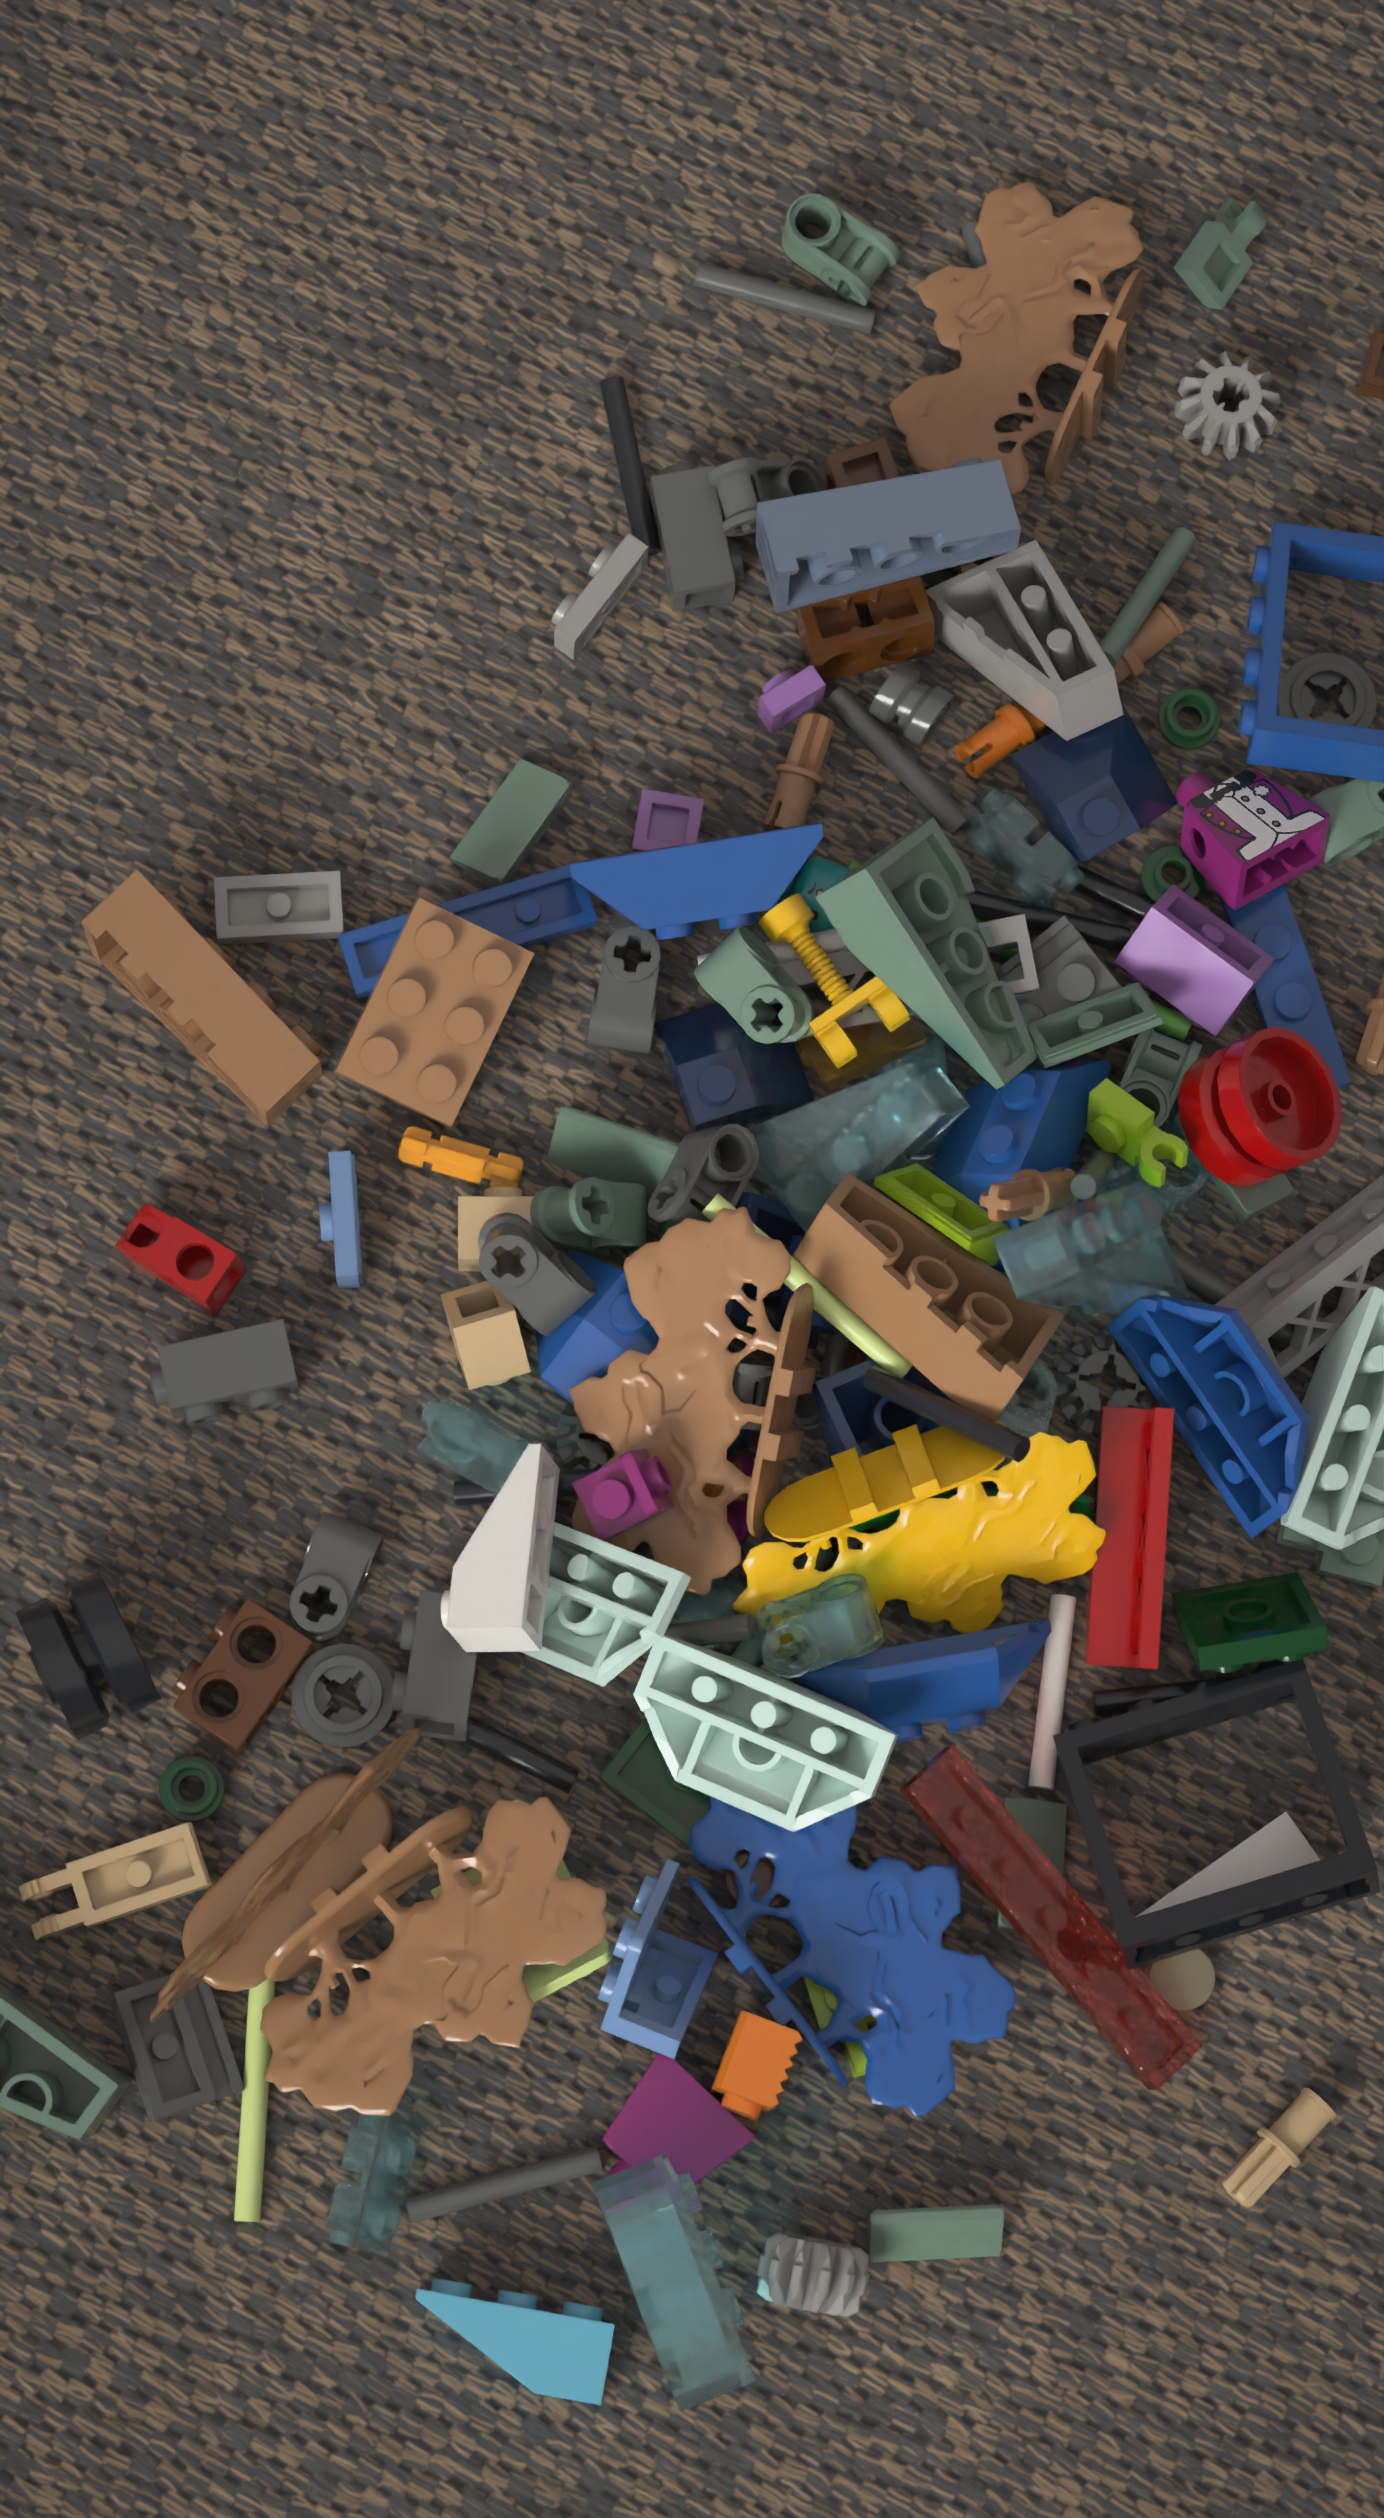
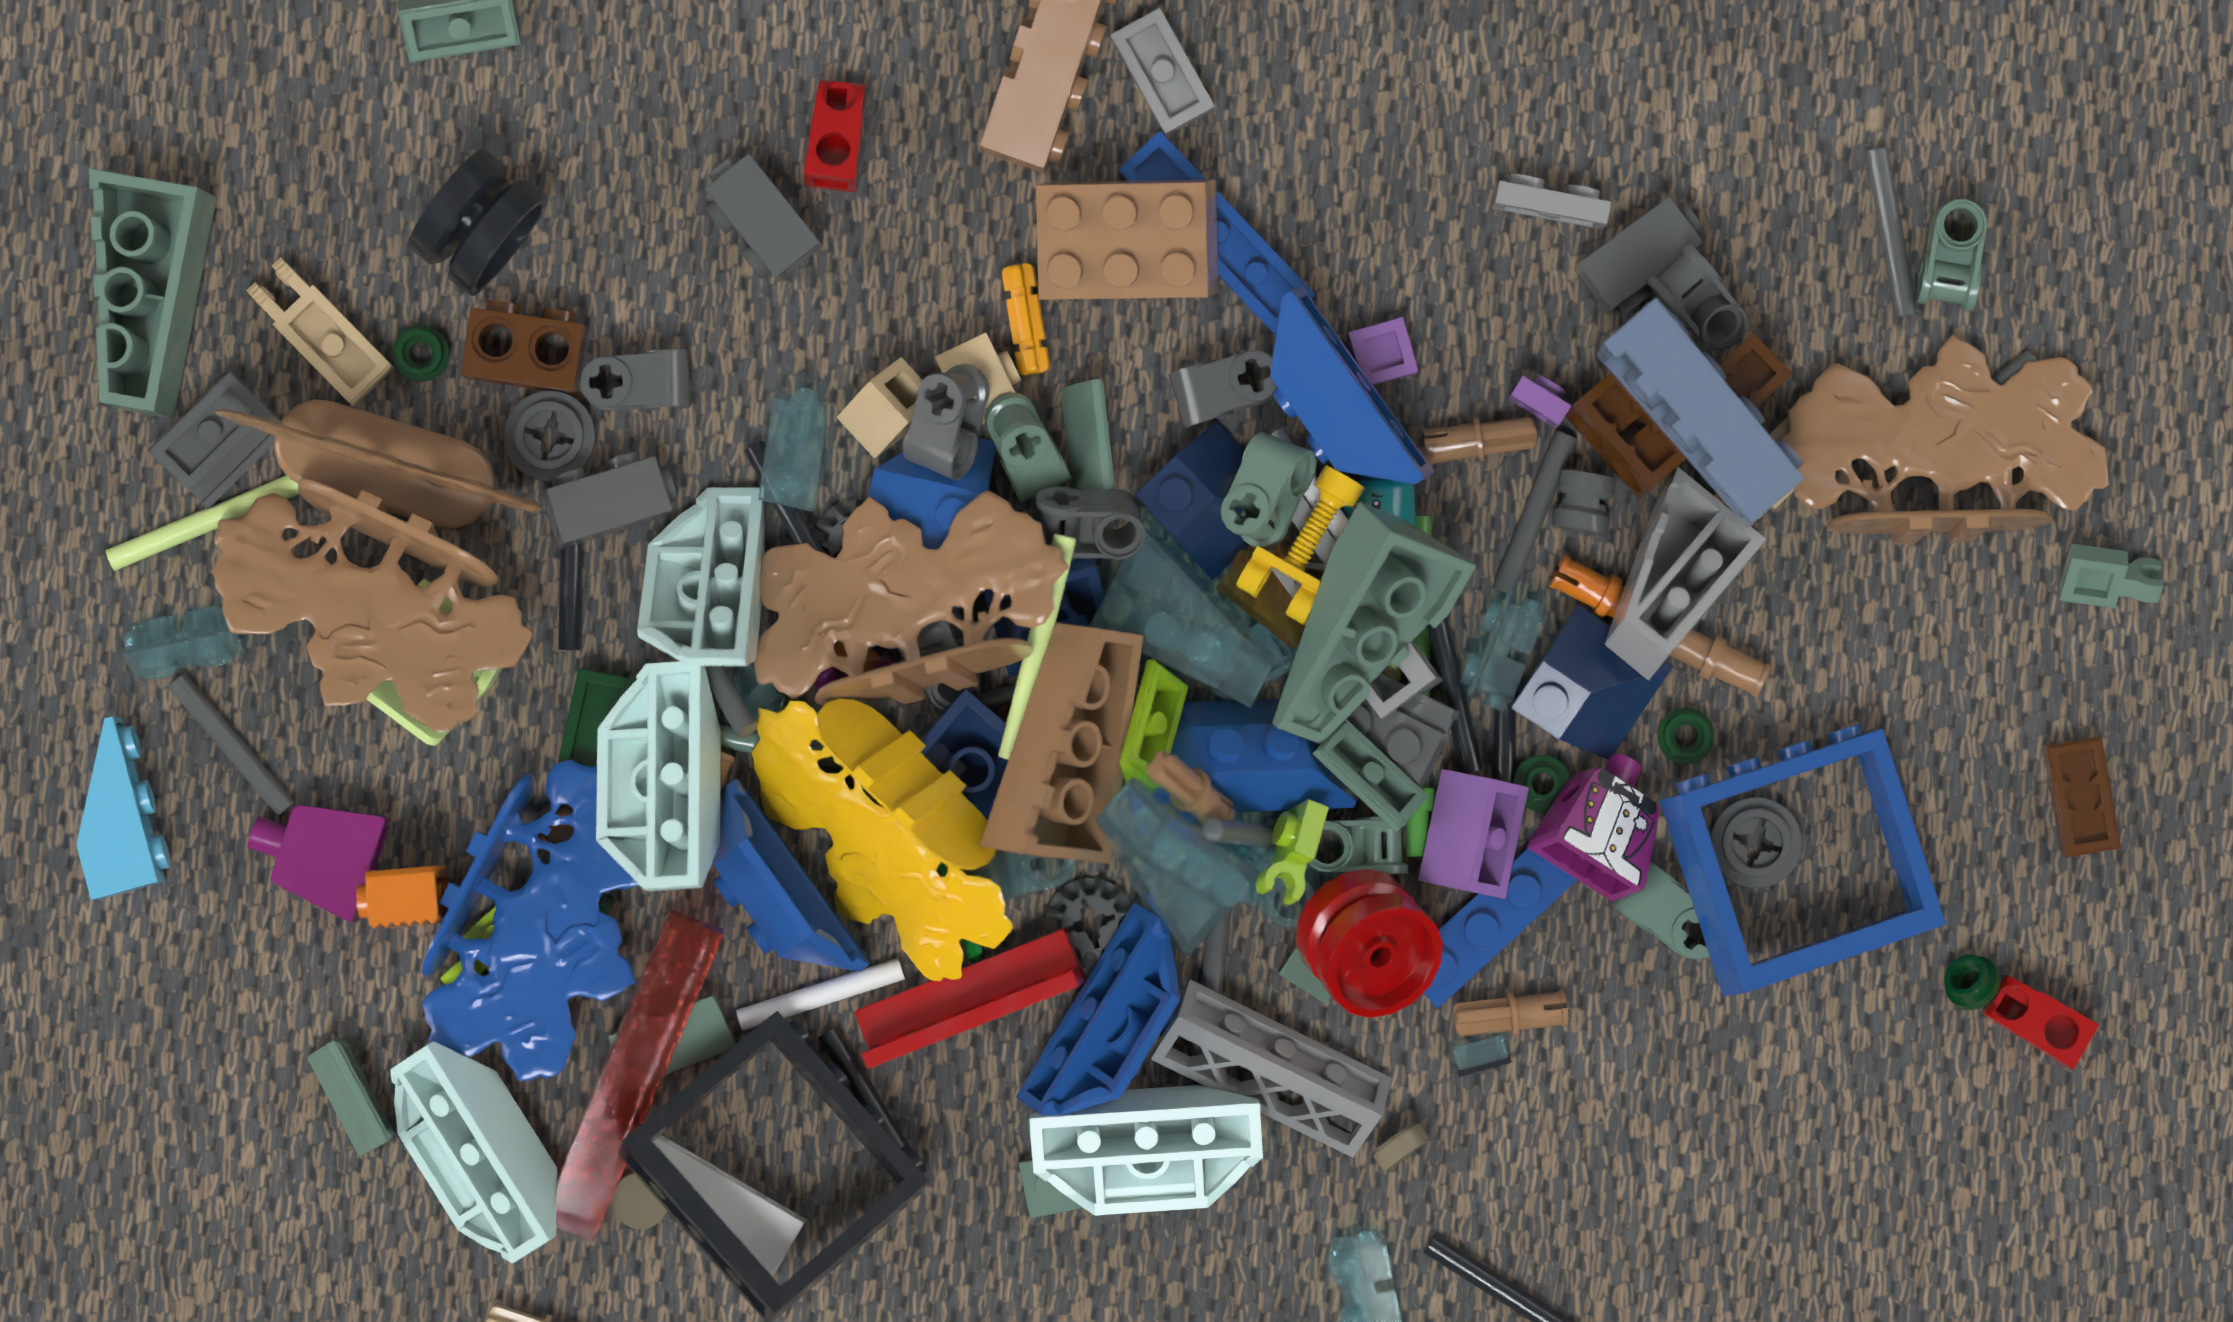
camera: 70 degrees right, 10 degrees up
(341, 1220) = (927, 249): medium blue plate -> none
(505, 1566) = (697, 515): white slope -> none
(512, 823) = (1325, 225): sand green slope -> none
(625, 1493) = (803, 581): magenta bracket -> none
(629, 462) = (1681, 173): black bar -> none
(660, 1975) = (439, 785): medium blue bracket -> none
(675, 2280) = (209, 912): clear light blue wedge -> none
(813, 2274) = (268, 1017): light grey gear -> none
(825, 1623) = (774, 787): clear light blue piece -> none
(946, 1413) = (980, 806): black bar -> none
(1056, 2122) = (476, 1150): none -> light aqua wedge
(1147, 594) = (1767, 651): sand green bar -> none
(1223, 427) = (1975, 624): light grey gear -> none
(1250, 1622) = (943, 1125): dark green plate -> none

